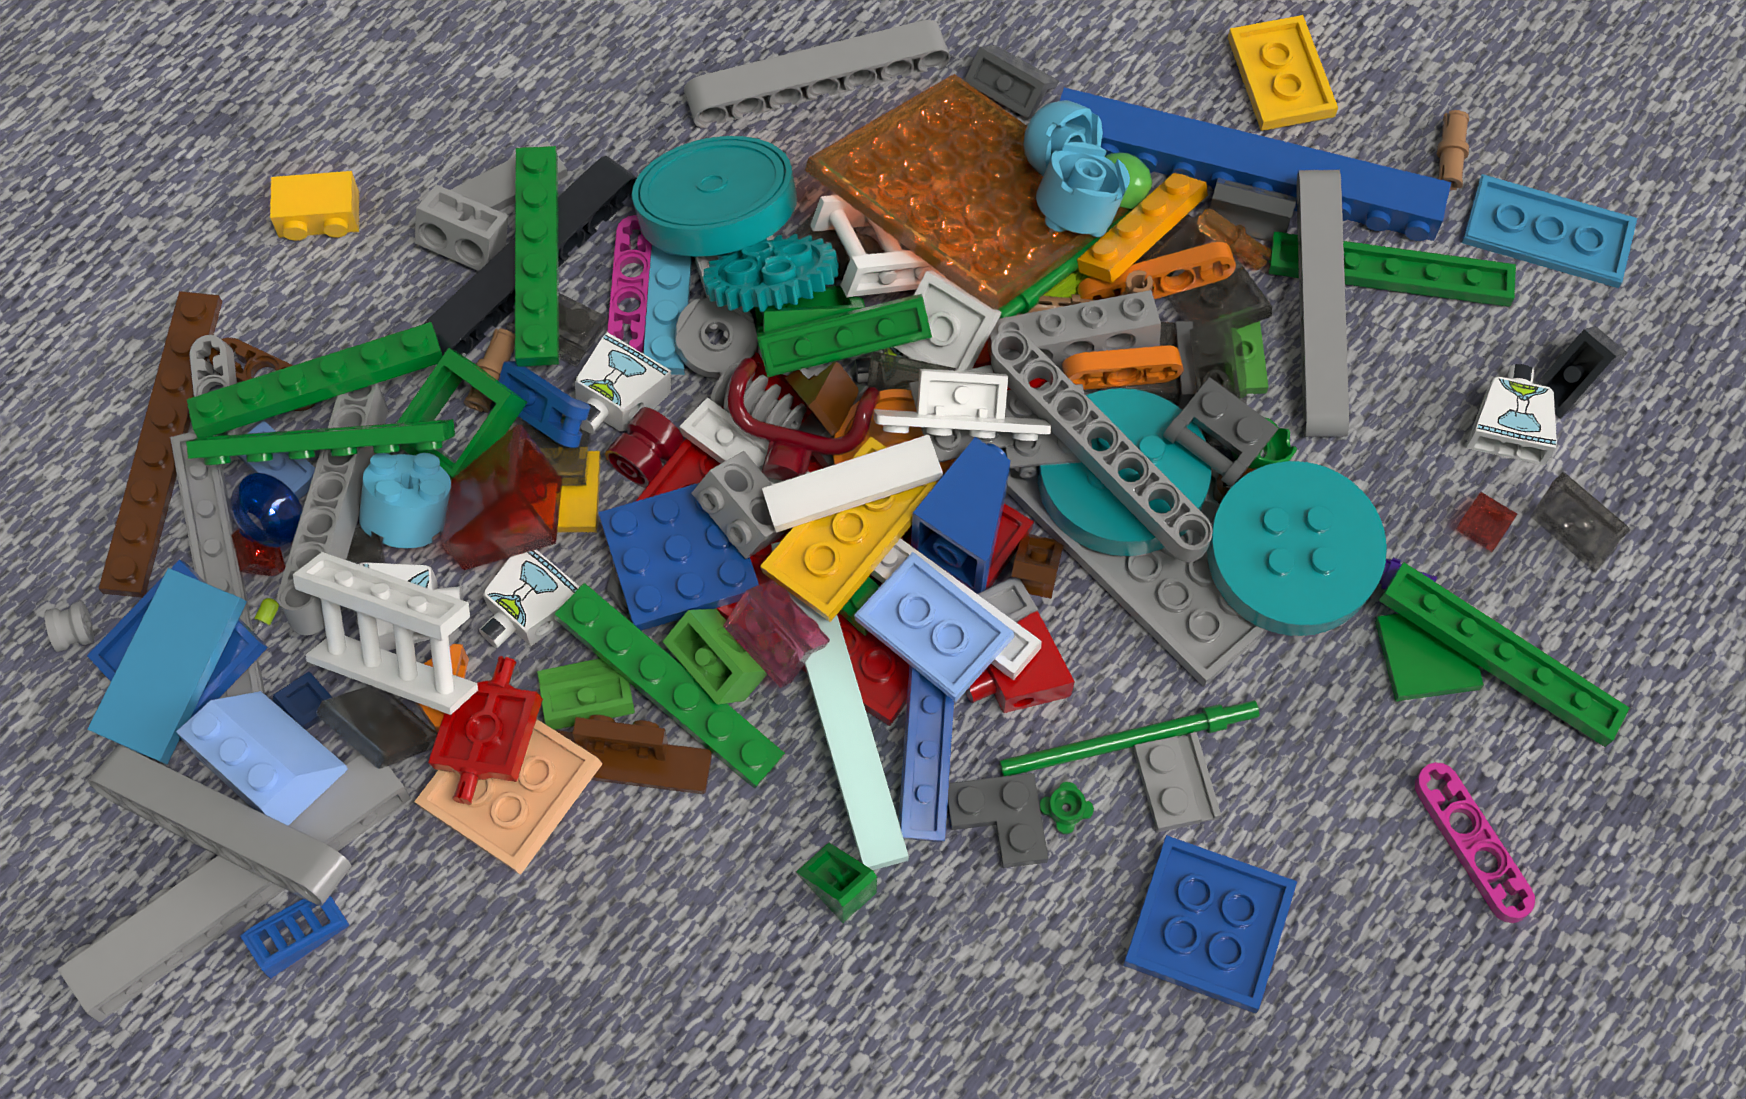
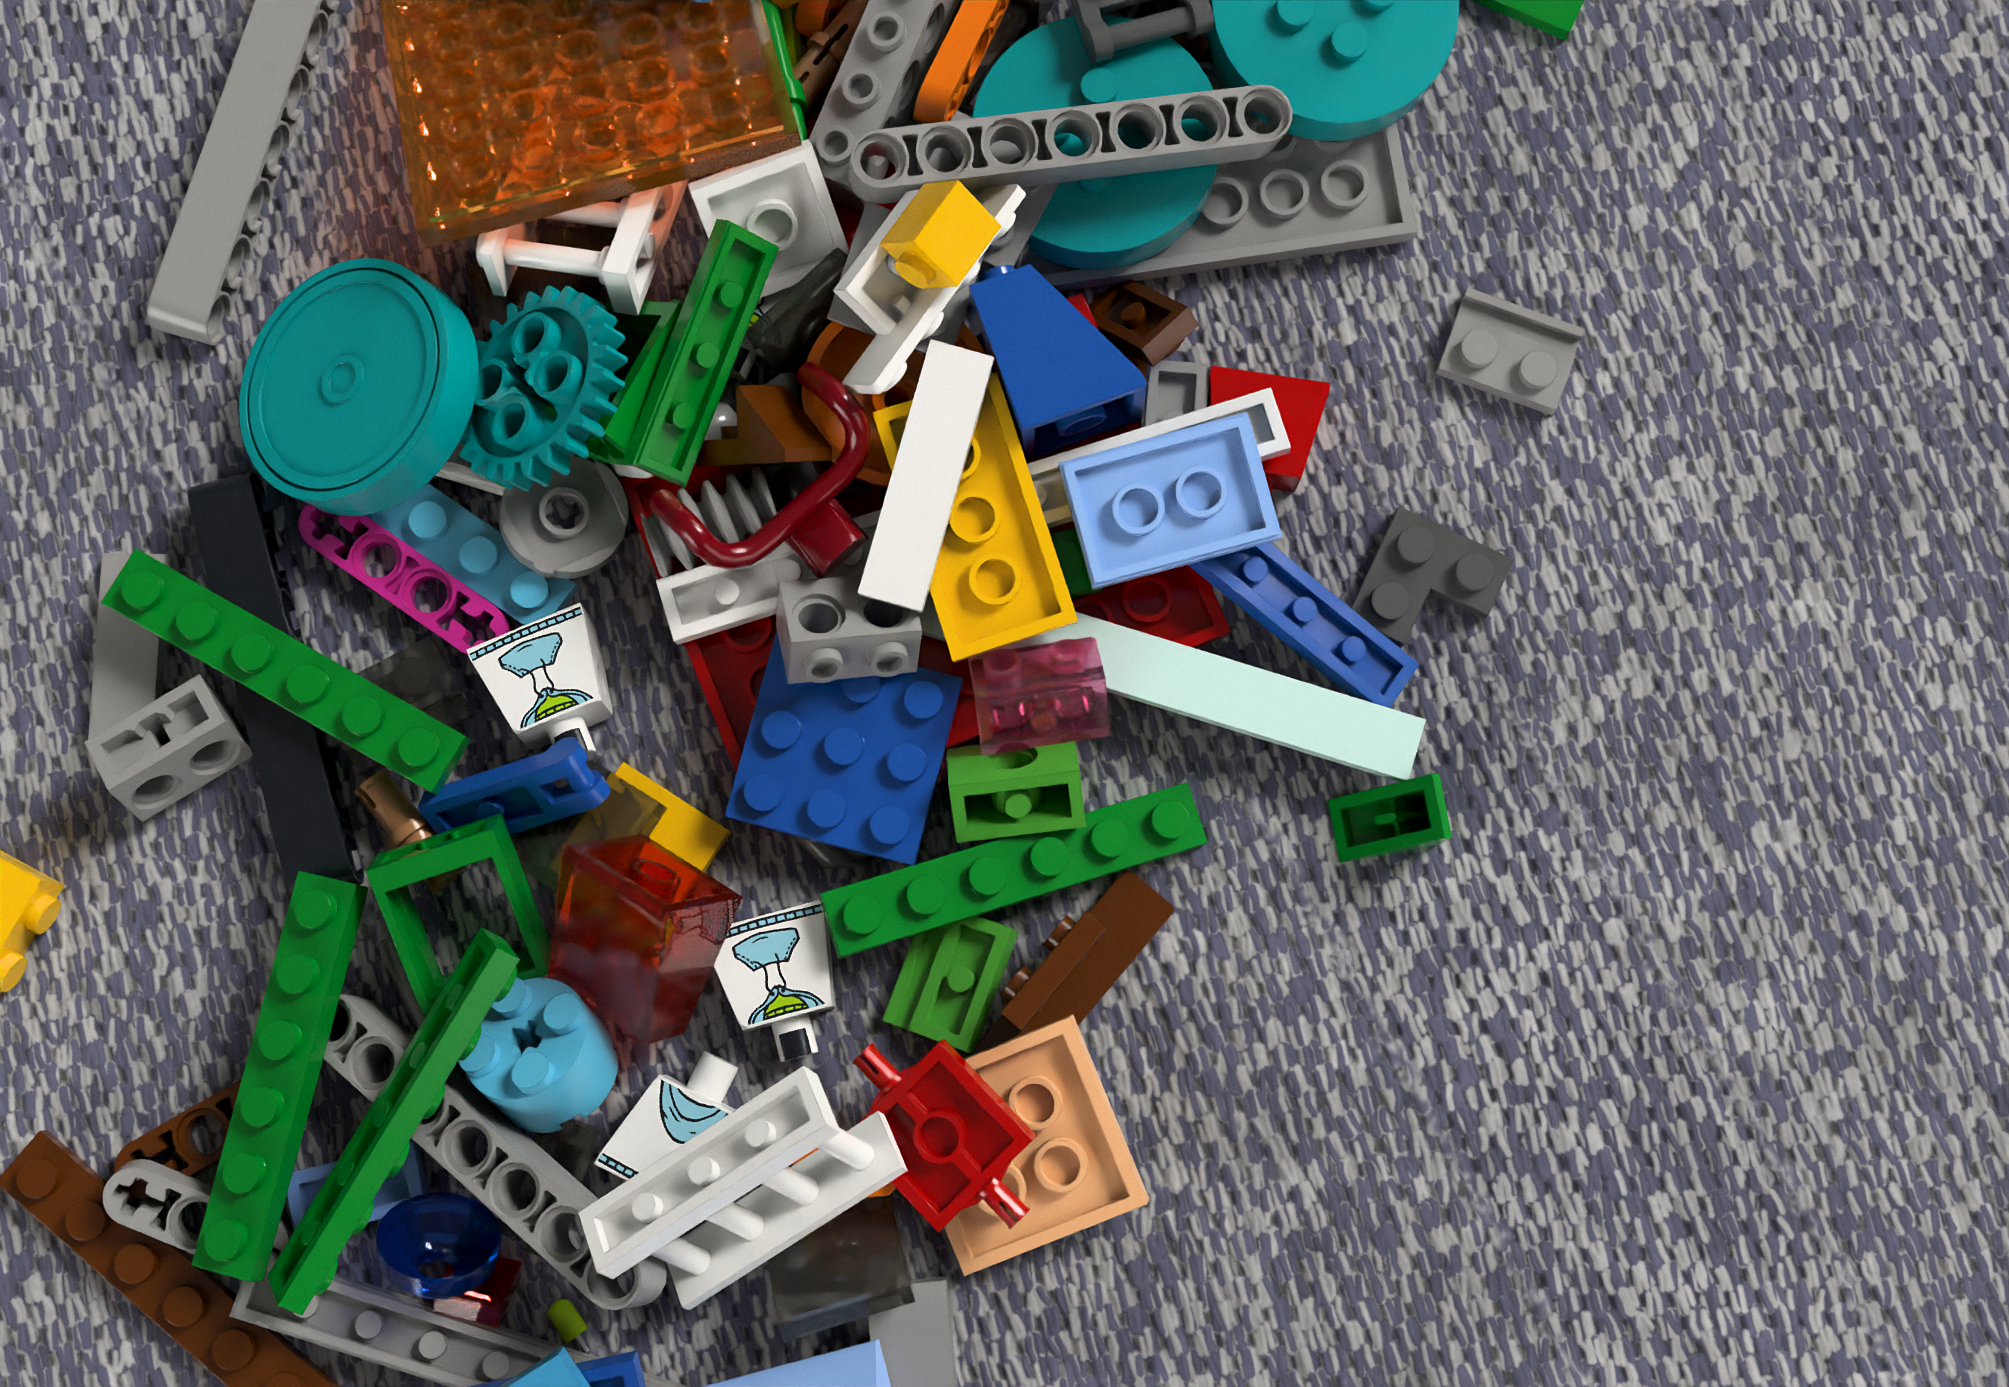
camera: 55 degrees left, 15 degrees up
(302, 699) = (735, 1341): dark blue plate -> none
(648, 441) = (661, 700): dark red wheel -> none
(986, 399) = (940, 235): none -> yellow brick
(1069, 795) = (1472, 481): green plate -> none
(1210, 924) = (1704, 429): blue plate -> none
(1212, 719) = (1459, 260): green bar -> none
(1480, 839) = (1786, 67): dark pink beam -> none

